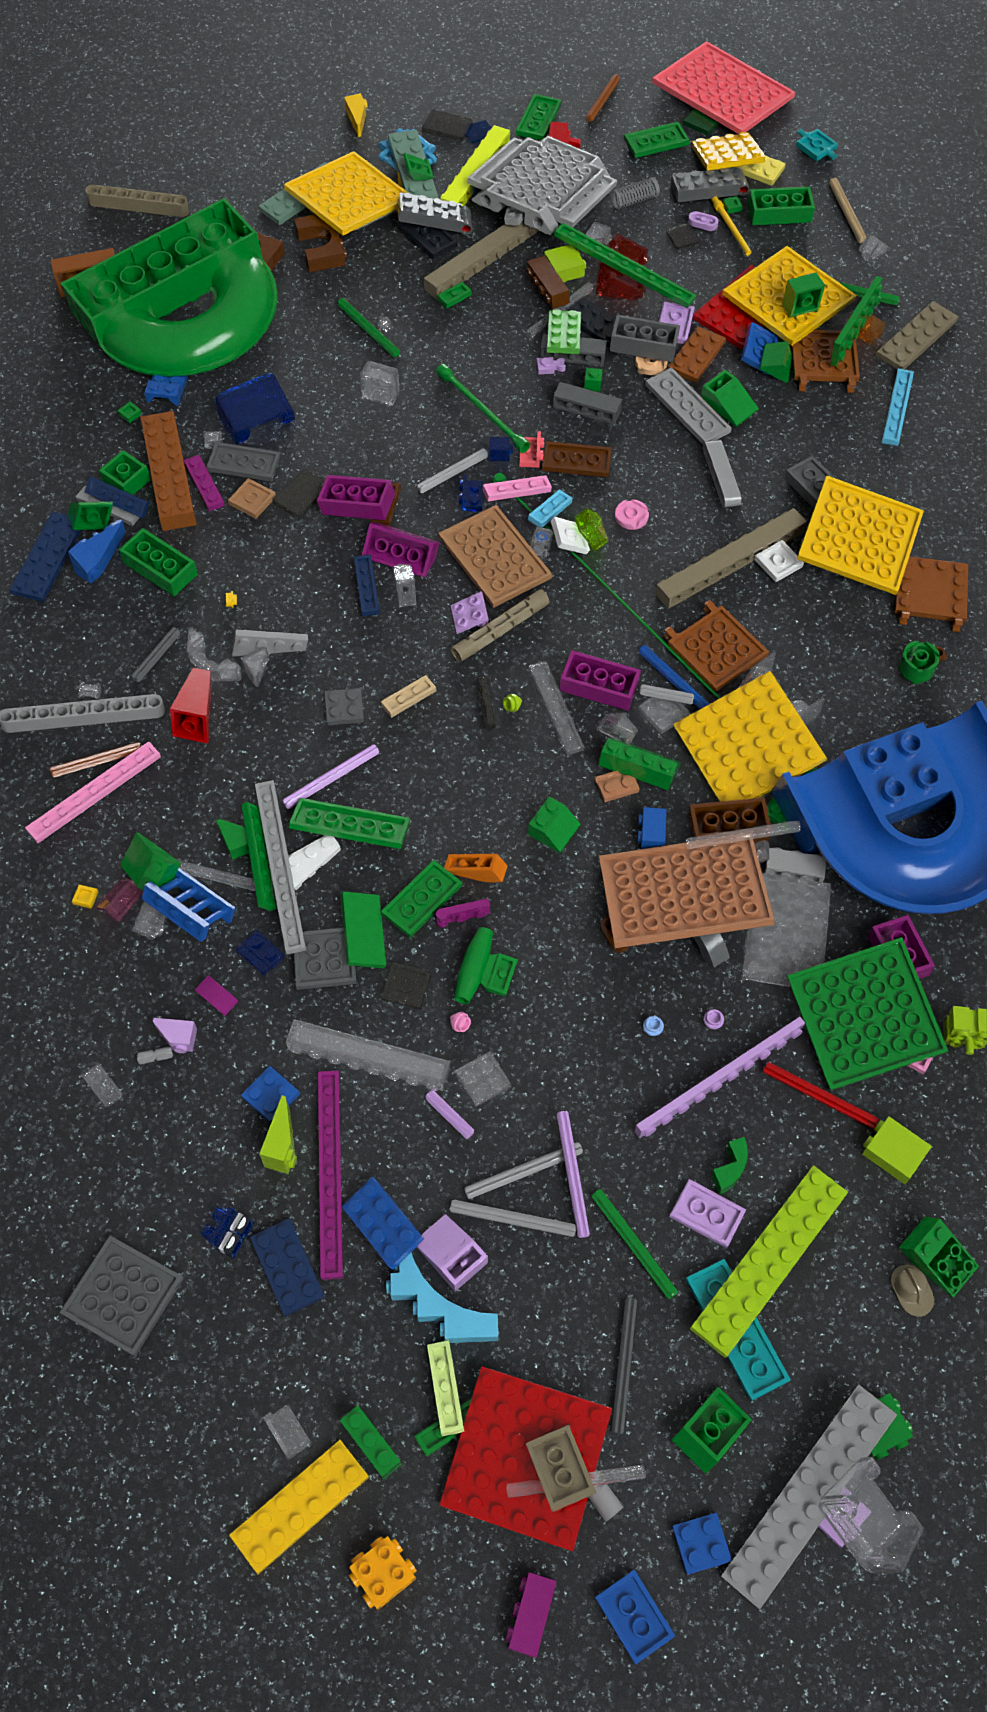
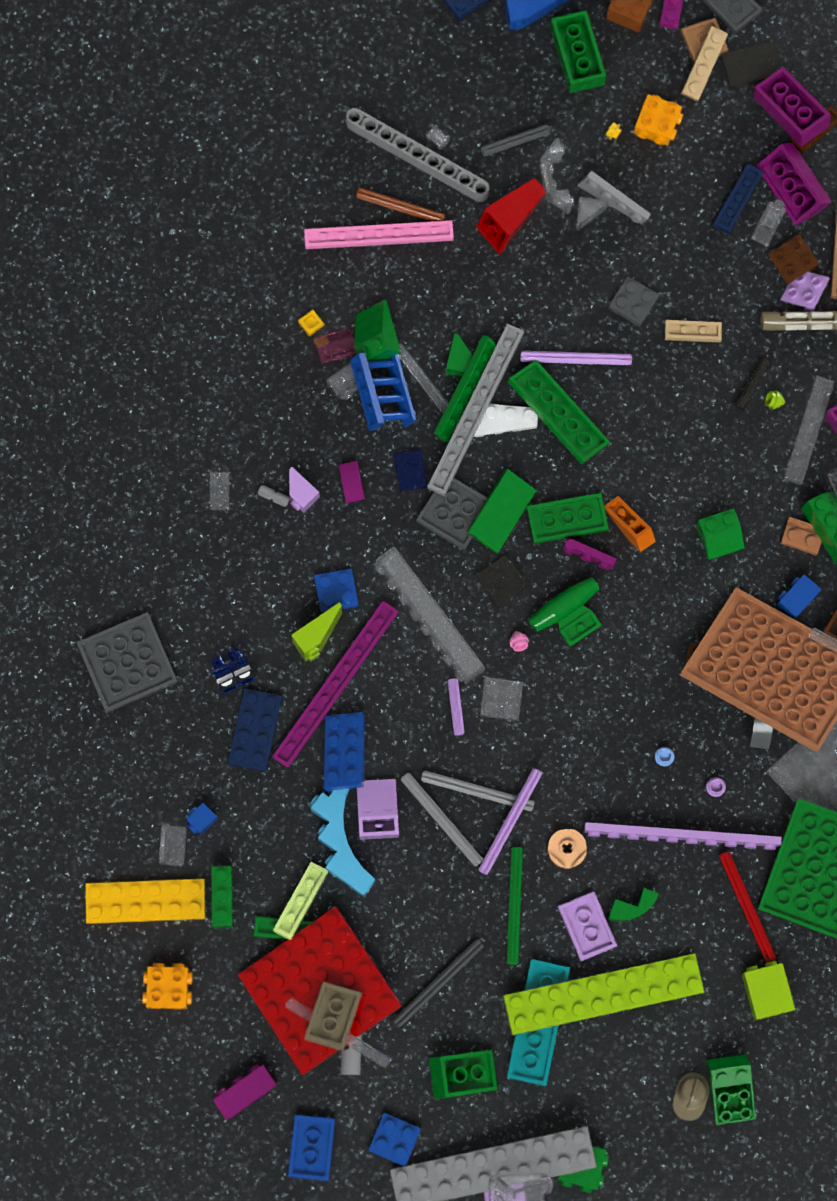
camera: 35 degrees right, 15 degrees up
(260, 570) = (658, 120): none -> light orange brick
(265, 511) = (704, 63): none -> tan plate
(296, 1385) = (200, 819): none -> blue brick
(443, 597) = (793, 259): none -> reddish brown hinge
(629, 1169) = (555, 849): none -> light nougat plate

